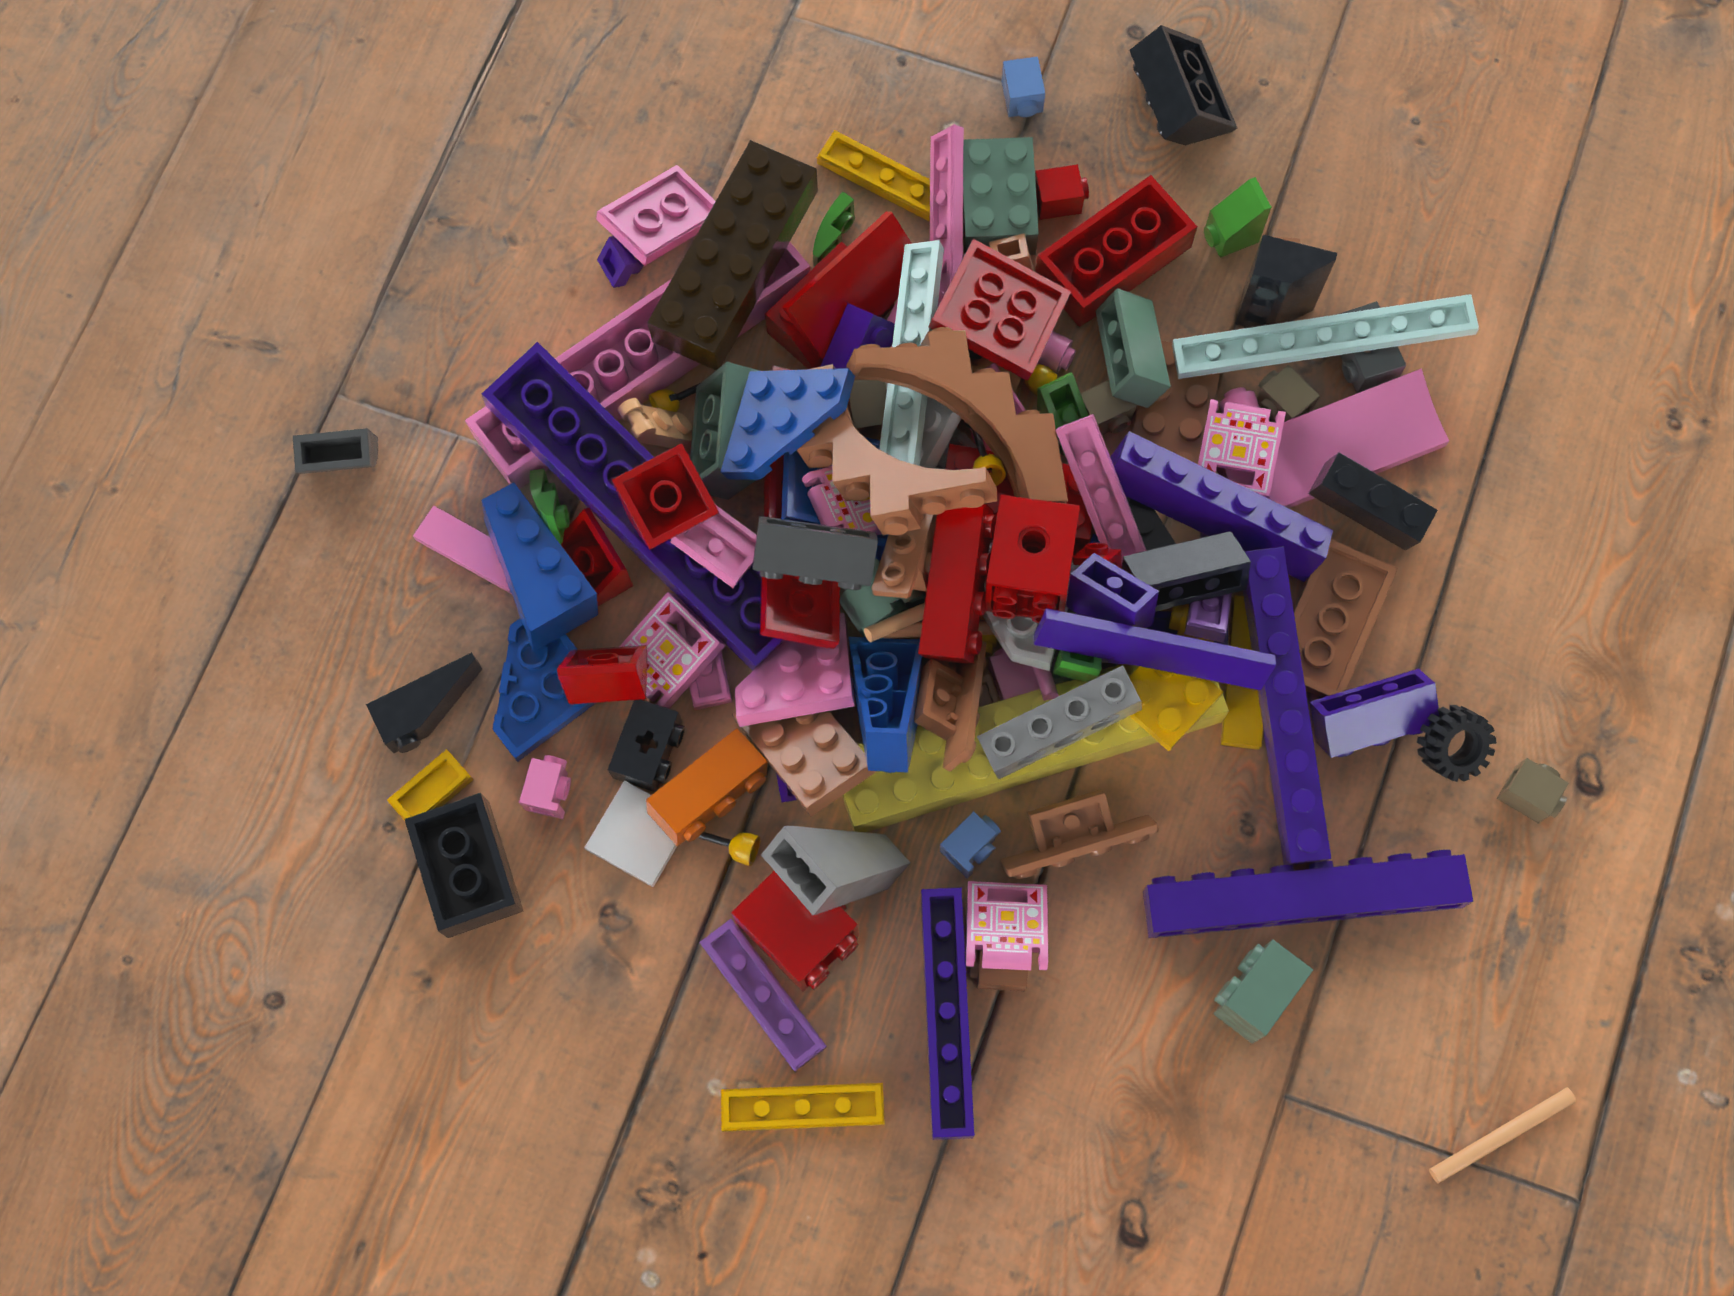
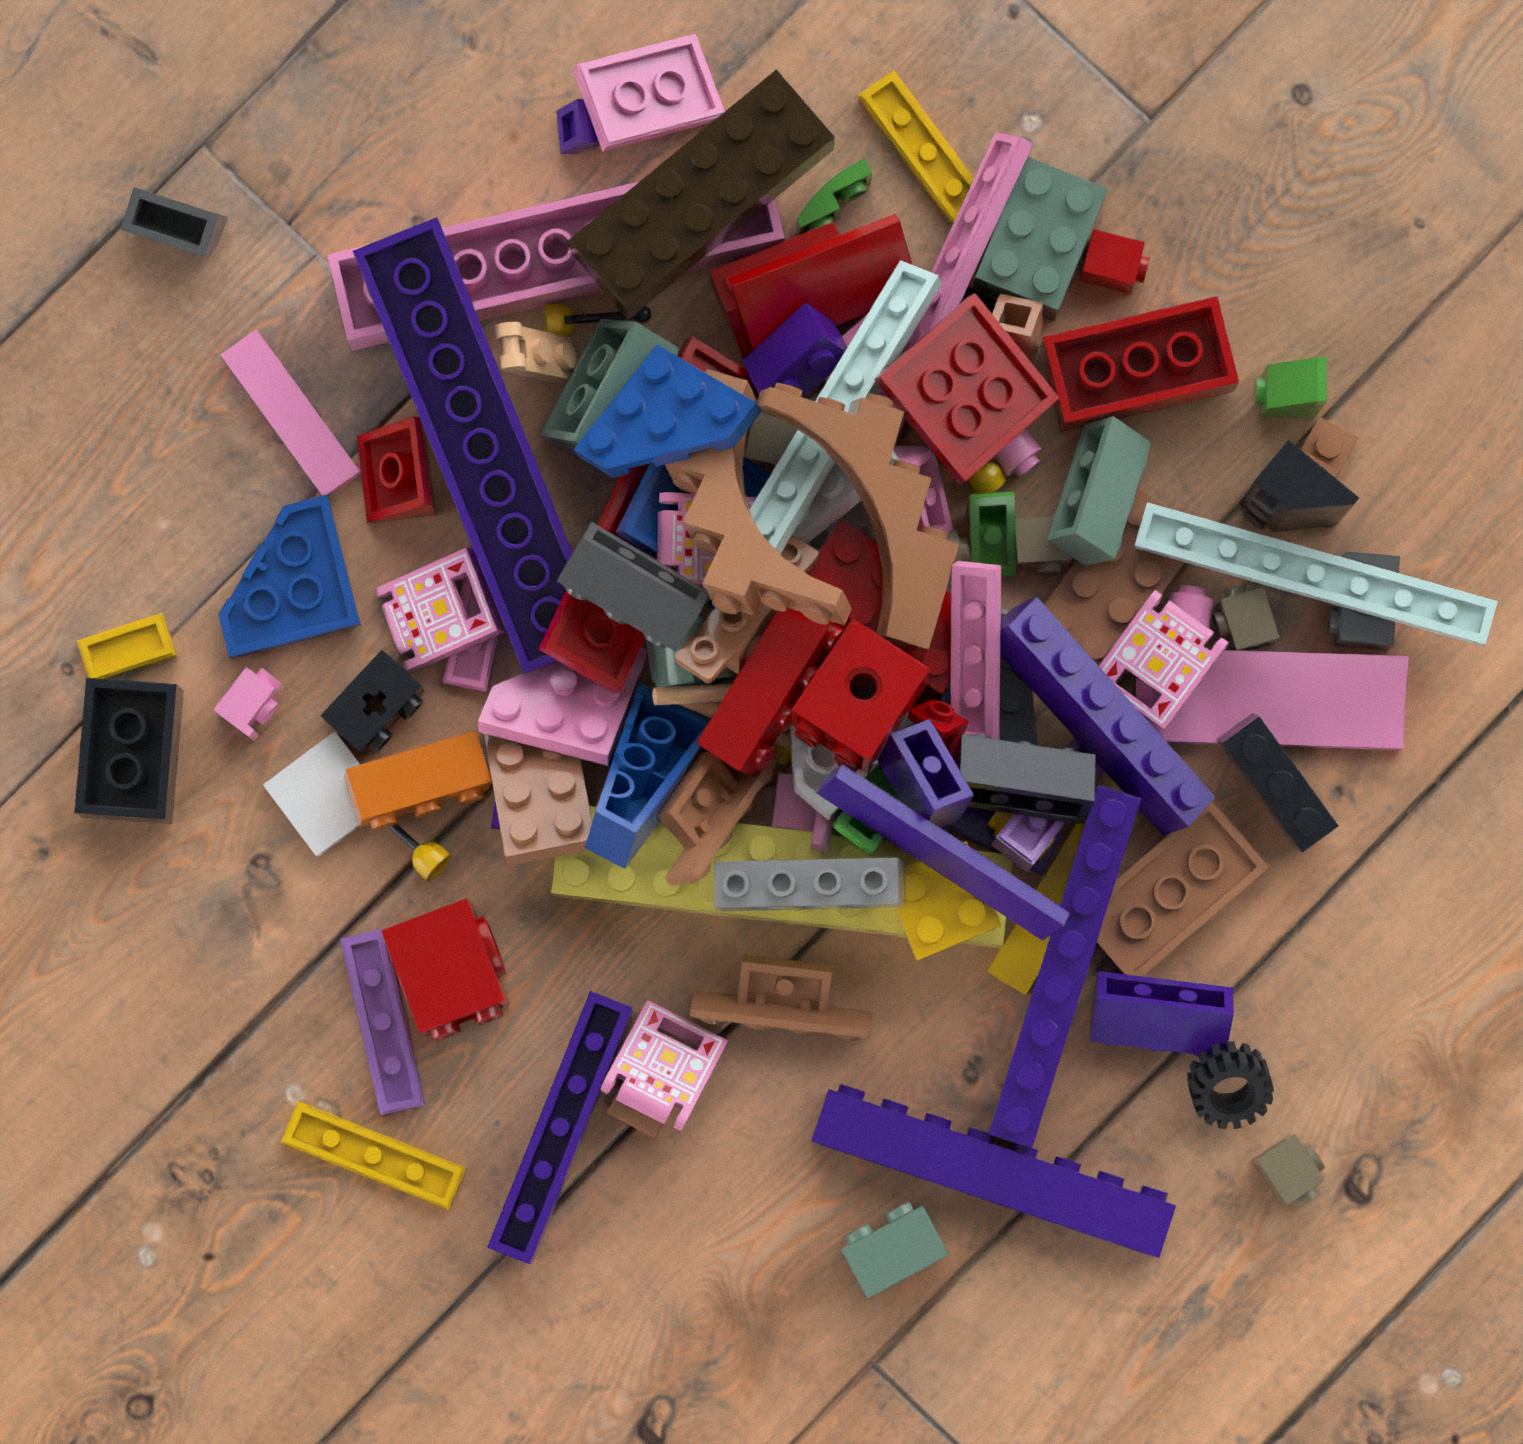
camera: 20 degrees right, 10 degrees up
(419, 706) = (148, 554): black slope -> none
(540, 574) = (337, 465): blue wedge -> none
(548, 504) = (378, 390): bright green slope -> none
(604, 674) = (361, 608): red slope -> none
(664, 496) = (499, 458): red slope -> none
(720, 546) = (537, 525): bright pink plate -> none
(833, 865) = (508, 929): light grey slope -> none
(970, 843) = (669, 960): medium blue brick -> none
(989, 461) = (865, 570): yellow hinge -> none
(1023, 87) = (1133, 113): medium blue brick -> none
(1181, 87) = (1316, 194): black slope -> none

